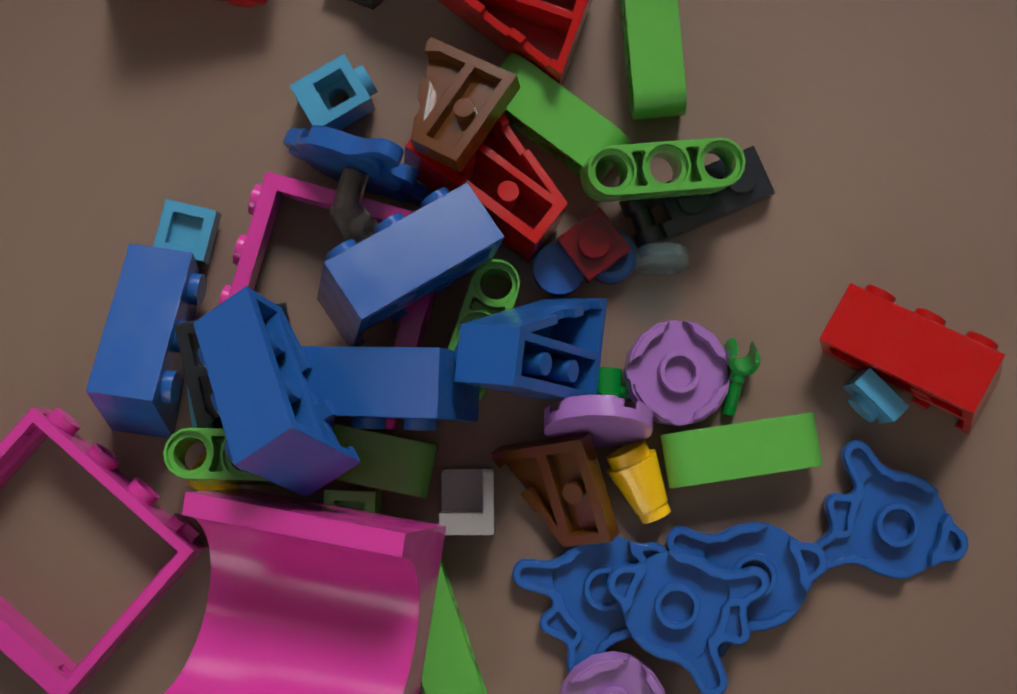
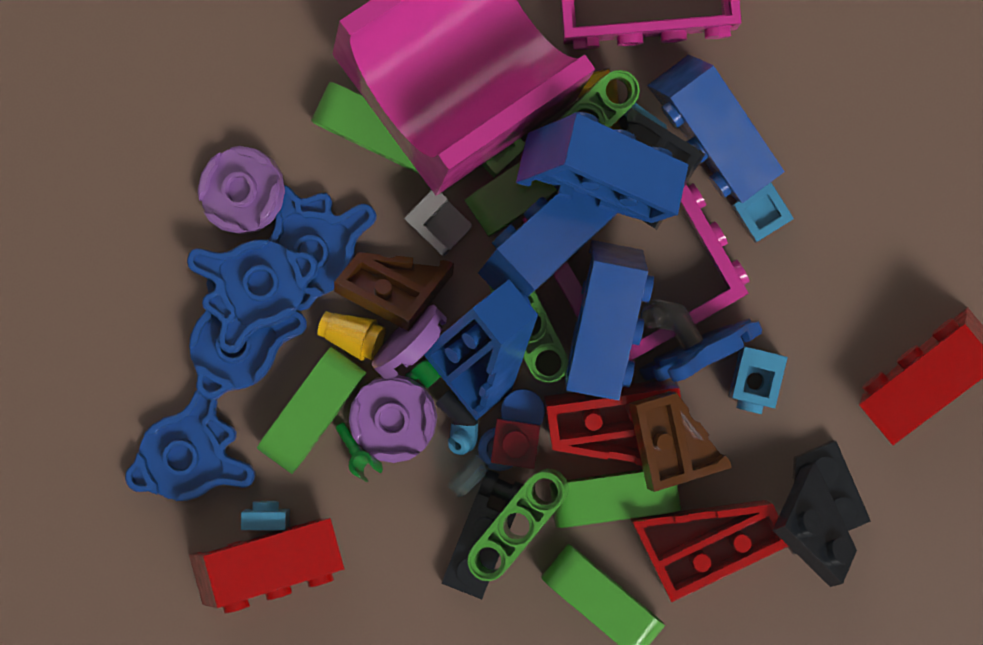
camera: 125 degrees right, 5 degrees up
(621, 308) = (463, 425): none -> arm

